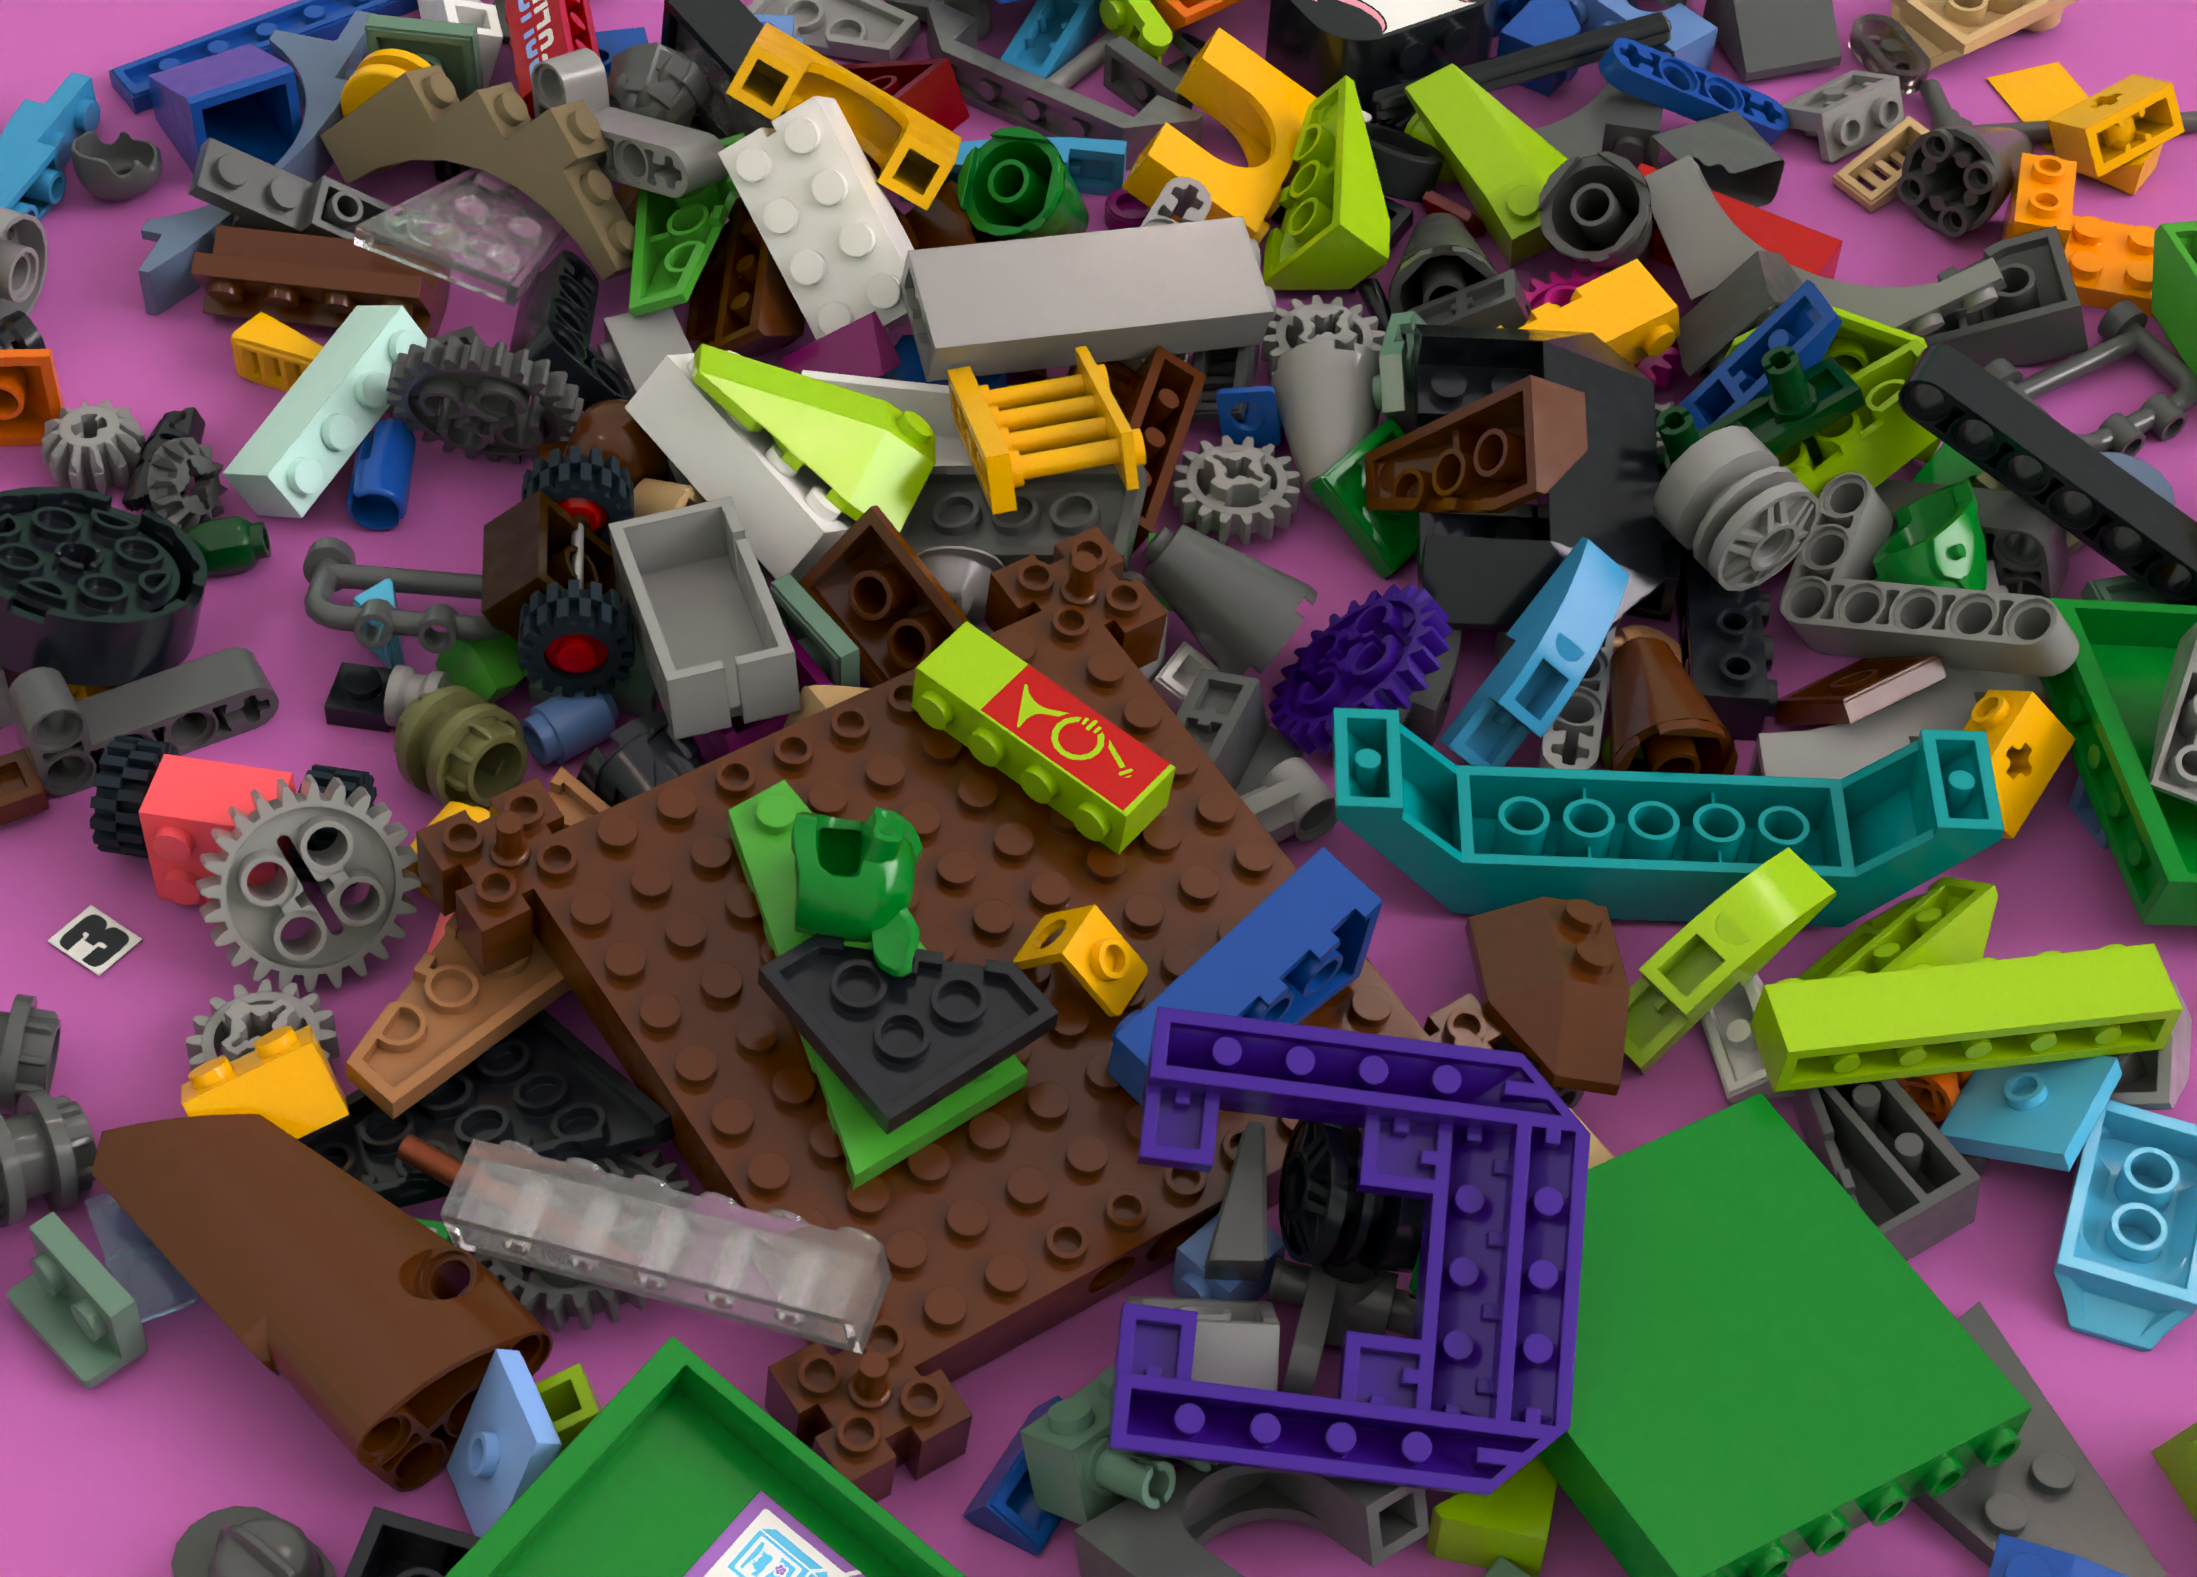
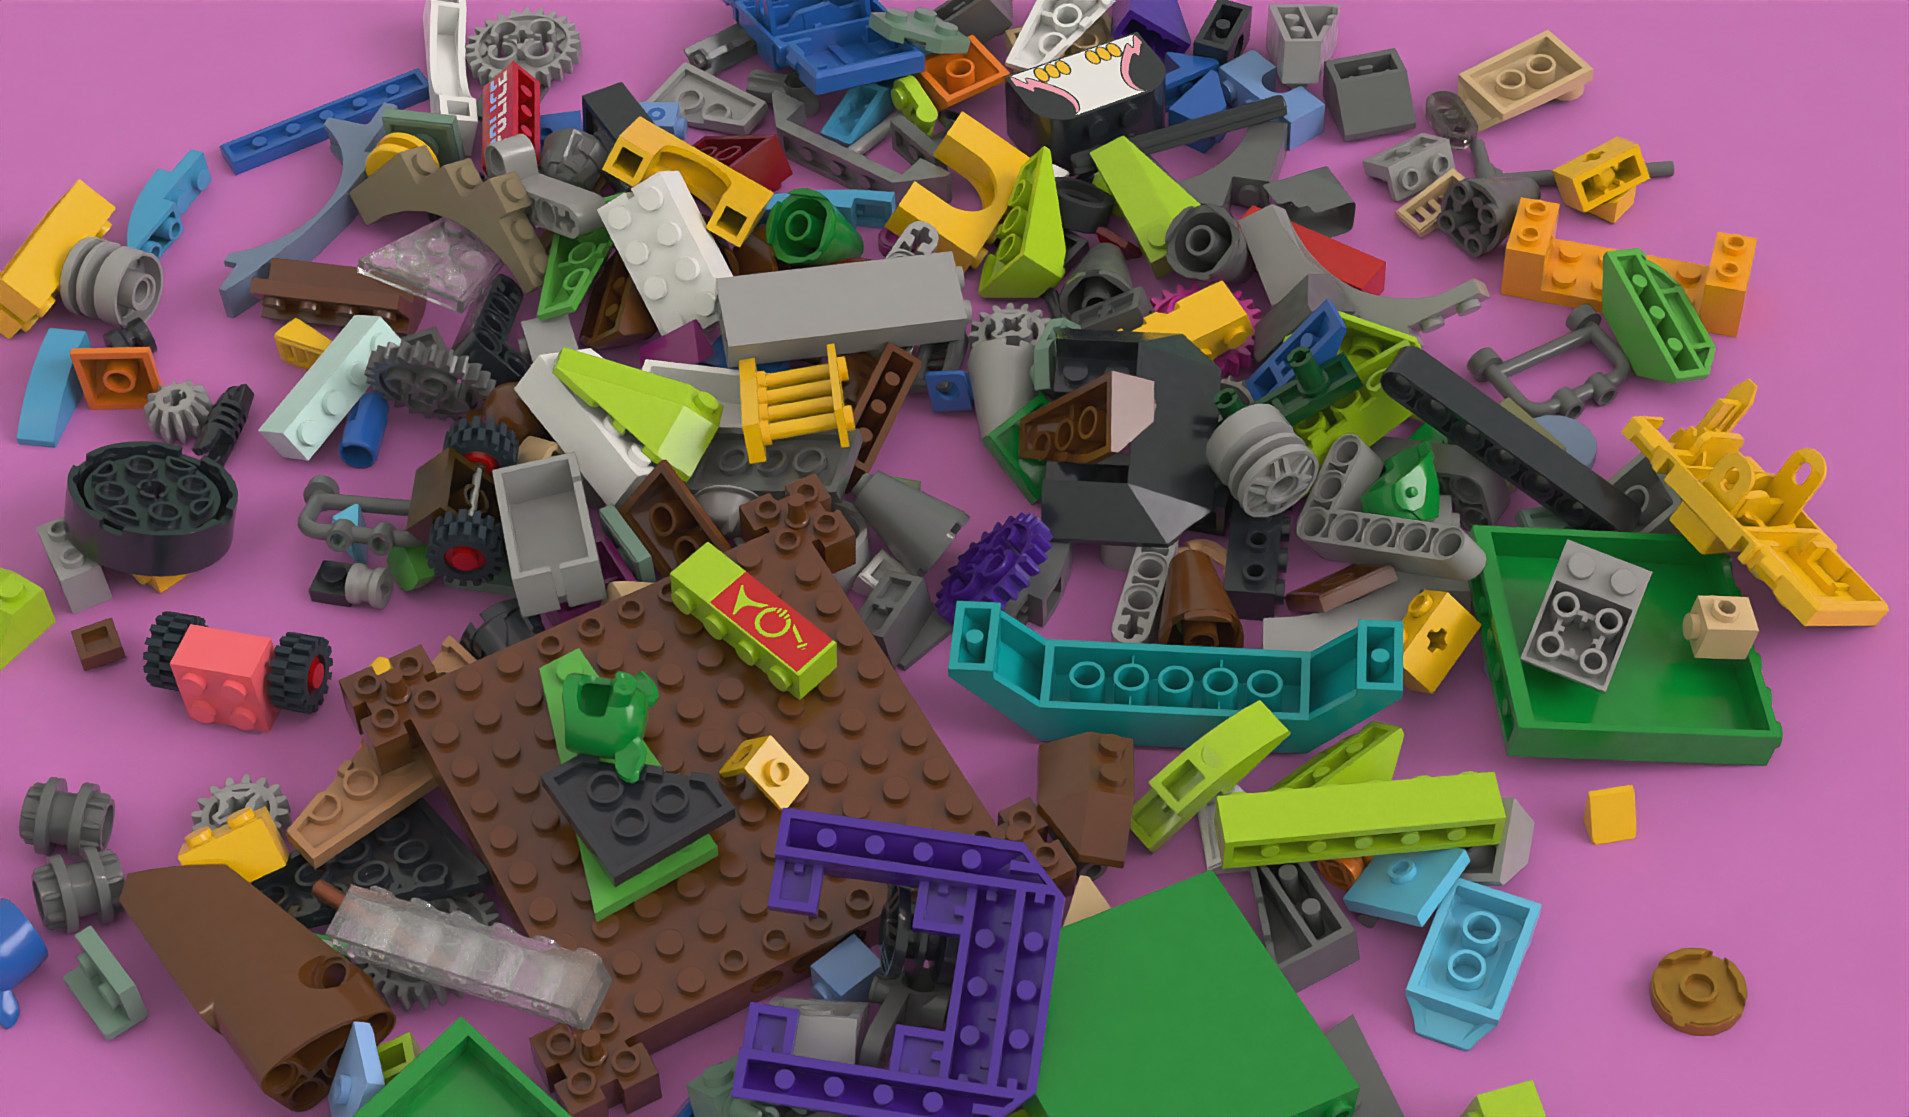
camera: 10 degrees right, 0 degrees up
(94, 940) = (146, 745): sticker -> none
(118, 168) = (216, 215): dark grey hair -> none
(137, 1261) = (143, 963): clear light blue slope -> none
(171, 472) = (222, 431): dark grey gear -> none
(179, 706) = (207, 592): dark grey beam -> none
(231, 544) = (259, 479): dark green plant -> none
(232, 97) = (292, 176): blue slope -> none
(256, 914) = (240, 730): light grey gear -> none
(275, 199) = (312, 239): dark grey slope -> none
(460, 747) = (389, 618): olive piece -> none
(569, 725) = (464, 604): medium blue brick -> none
(1236, 489) = (935, 441): light grey gear -> none
(1240, 1233) = (846, 954): dark grey slope -> none
(1271, 966) = (890, 774): blue wedge -> none
(1293, 802) = (928, 666): light grey piece -> none
(1546, 663) = (1118, 567): dark azure slope -> none
(1688, 88) = (1259, 138): blue beam -> none
(2035, 314) = (1508, 321): dark grey wedge -> none
(2039, 92) = (1558, 146): yellow sticker -> none

